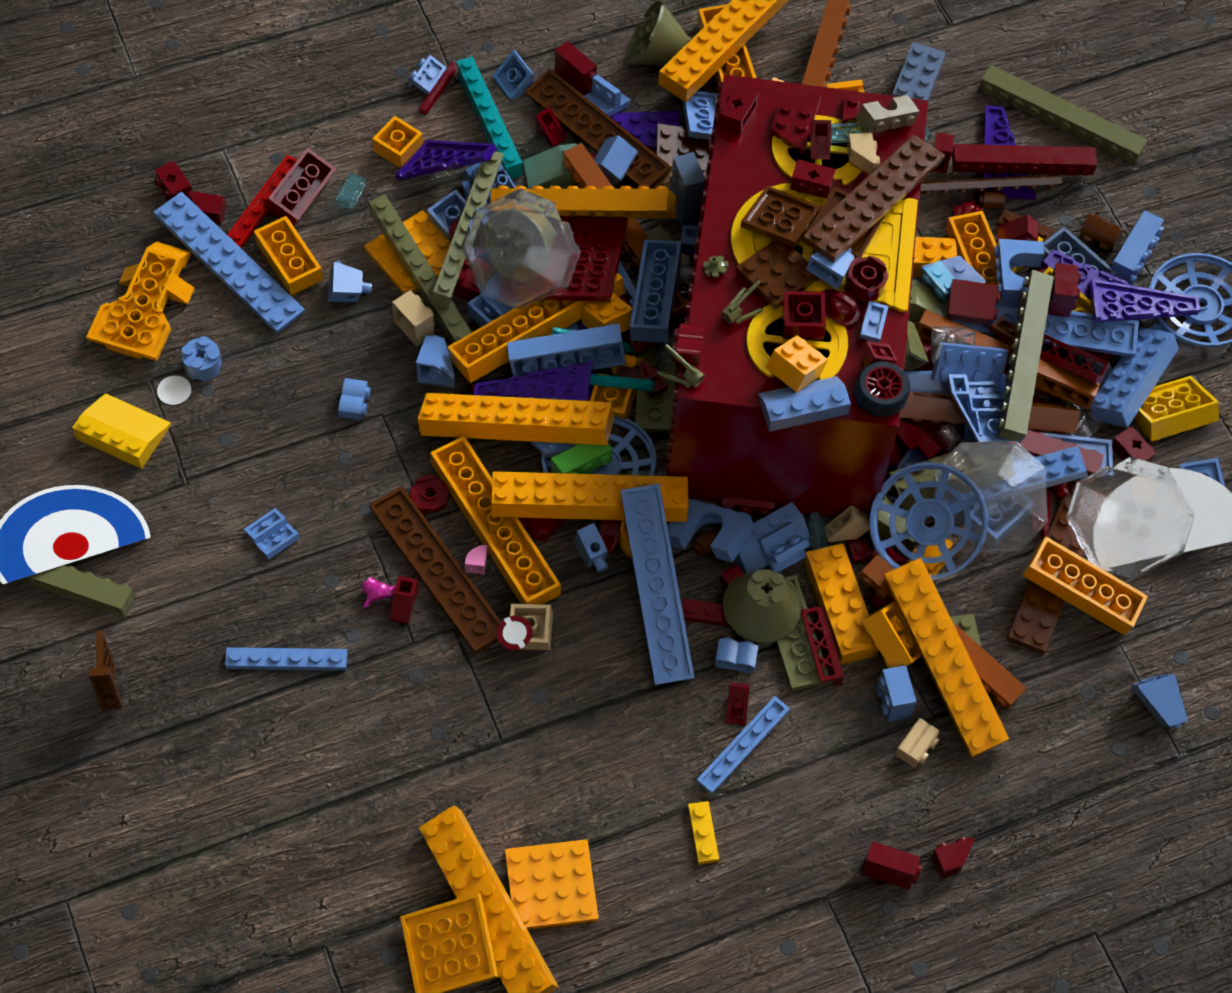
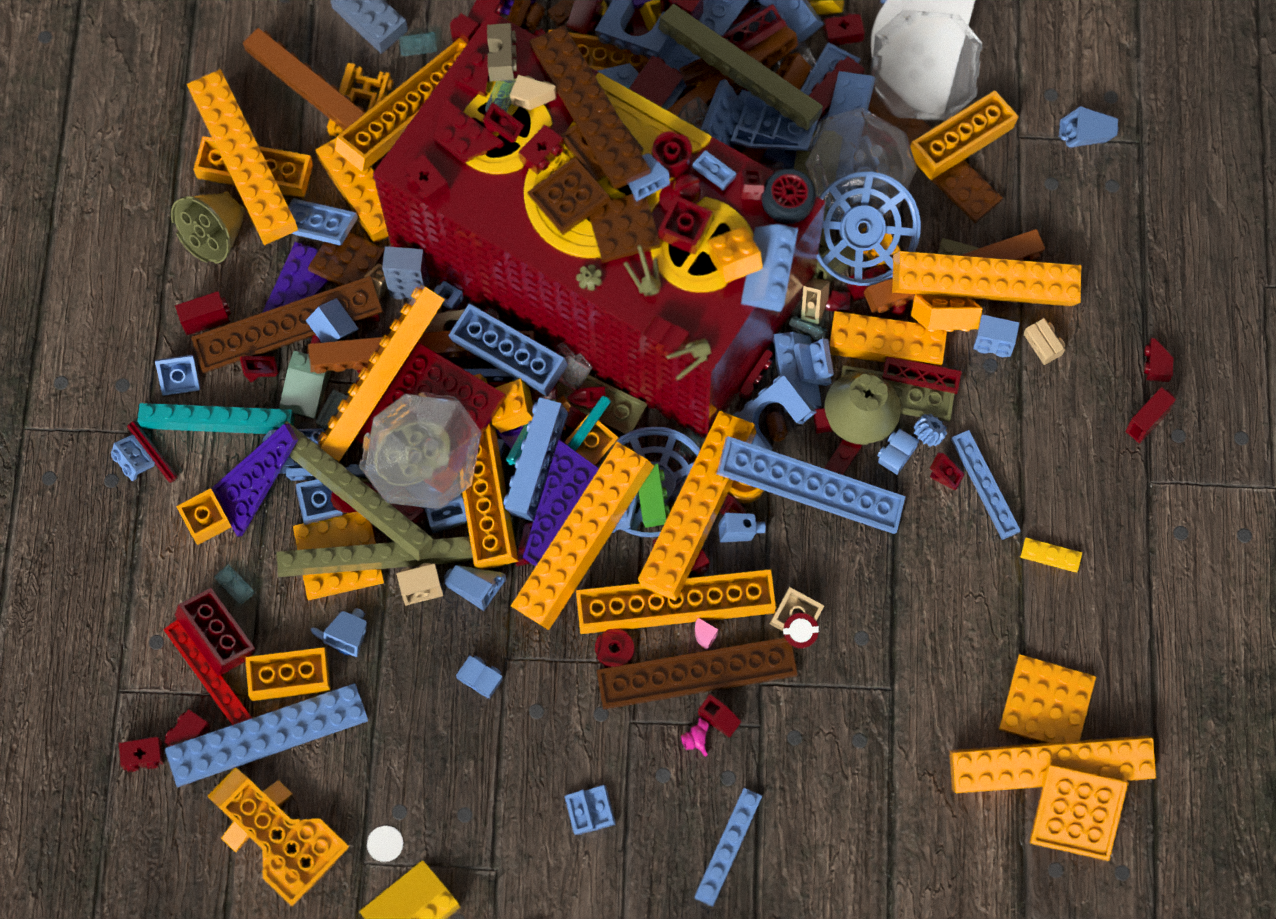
camera: 60 degrees left, 10 degrees up
(201, 359) = (358, 797): medium blue brick -> none
(607, 96) = (250, 300): medium blue bracket -> none
(770, 673) = (930, 430): none -> medium blue gear

